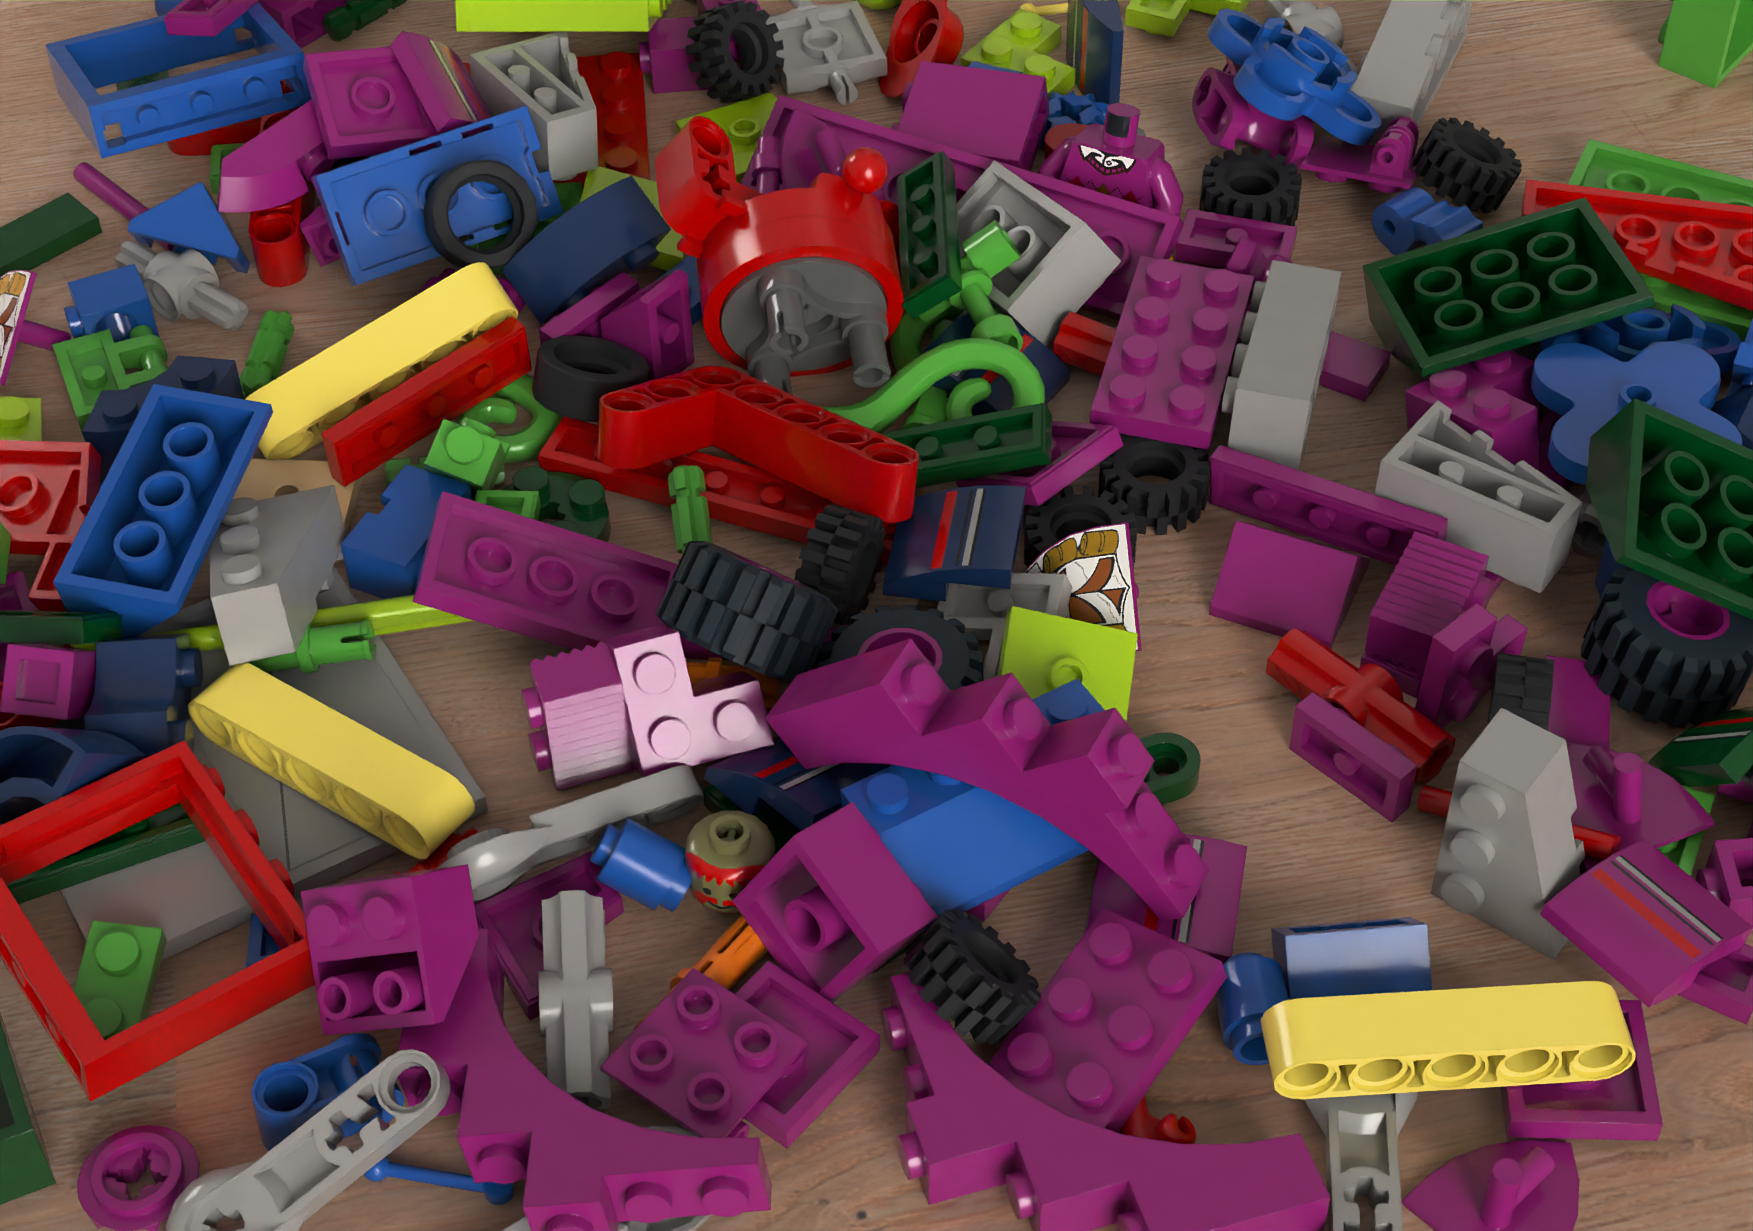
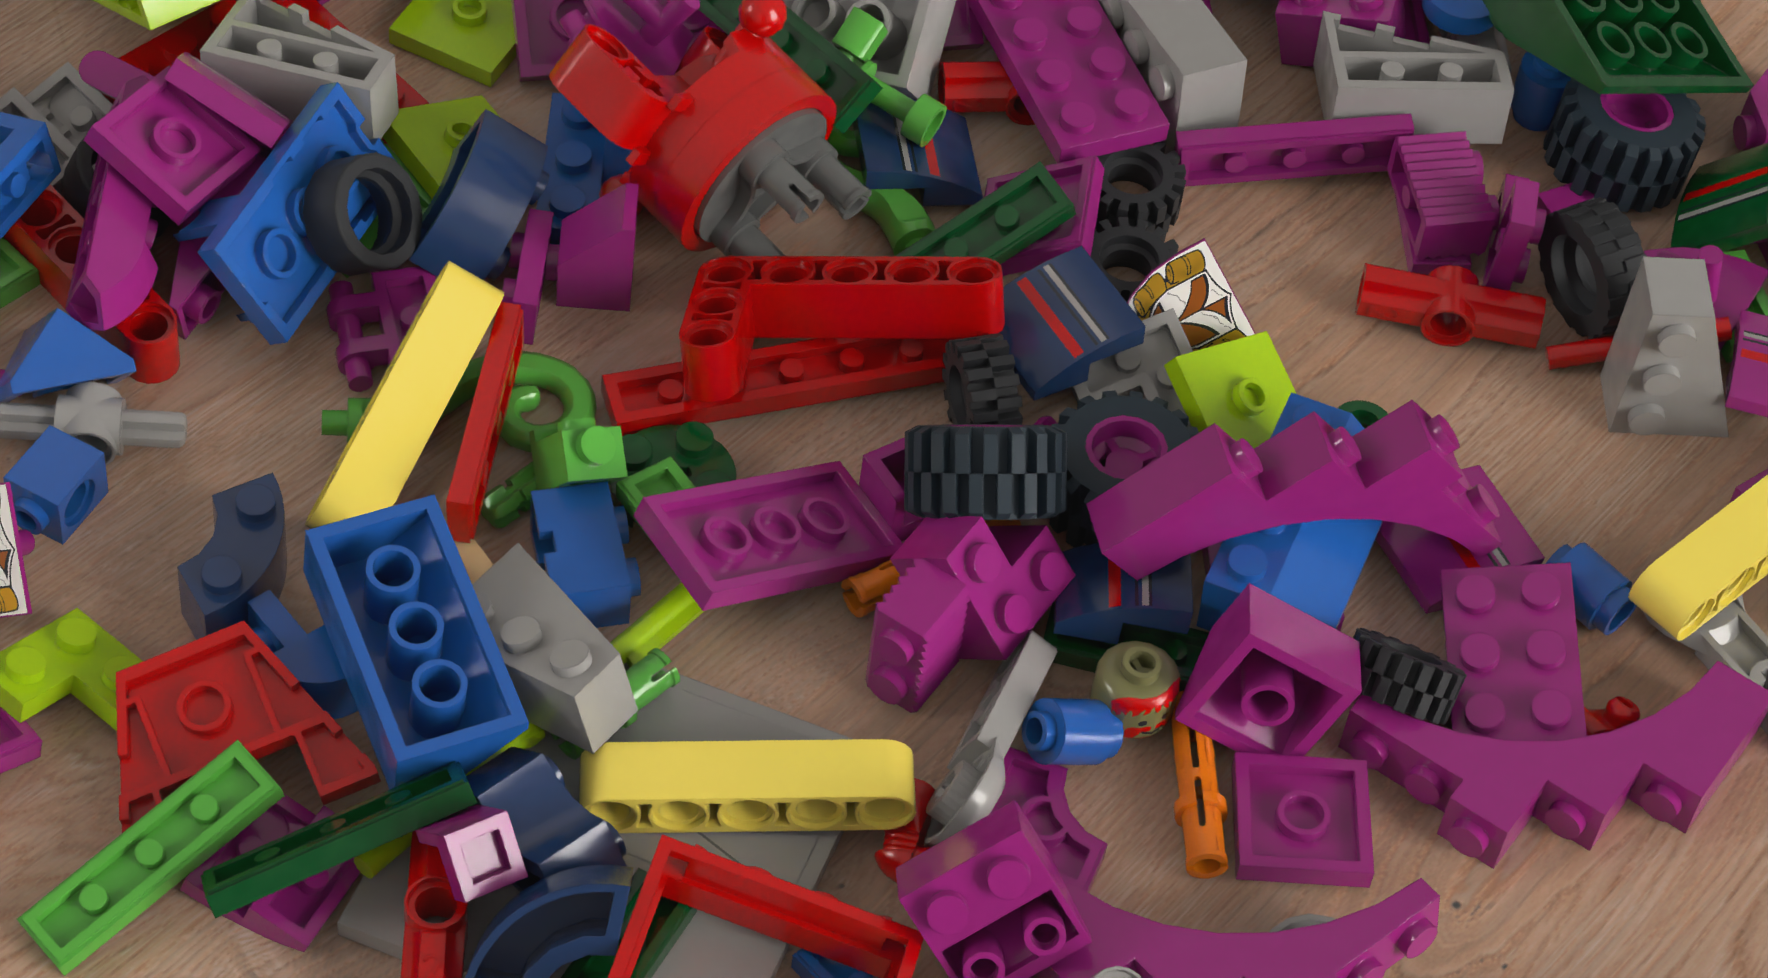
camera: 45 degrees left, 5 degrees up
(99, 364) = (112, 560): bright green plate -> none
(267, 351) = (240, 445): bright green axle -> none
(576, 996) = (1128, 863): light grey piece -> none
(579, 370) = (595, 328): black tyre -> none
(691, 509) = (813, 417): bright green axle -> none
(704, 1057) = (1269, 853): magenta hinge -> none
(912, 380) = (874, 221): bright green plant -> none
(1286, 583) = (1306, 228): magenta slope -> none
(1353, 756) = (1484, 351): magenta plate -> none
(1354, 957) = (1626, 513): blue brick -> none

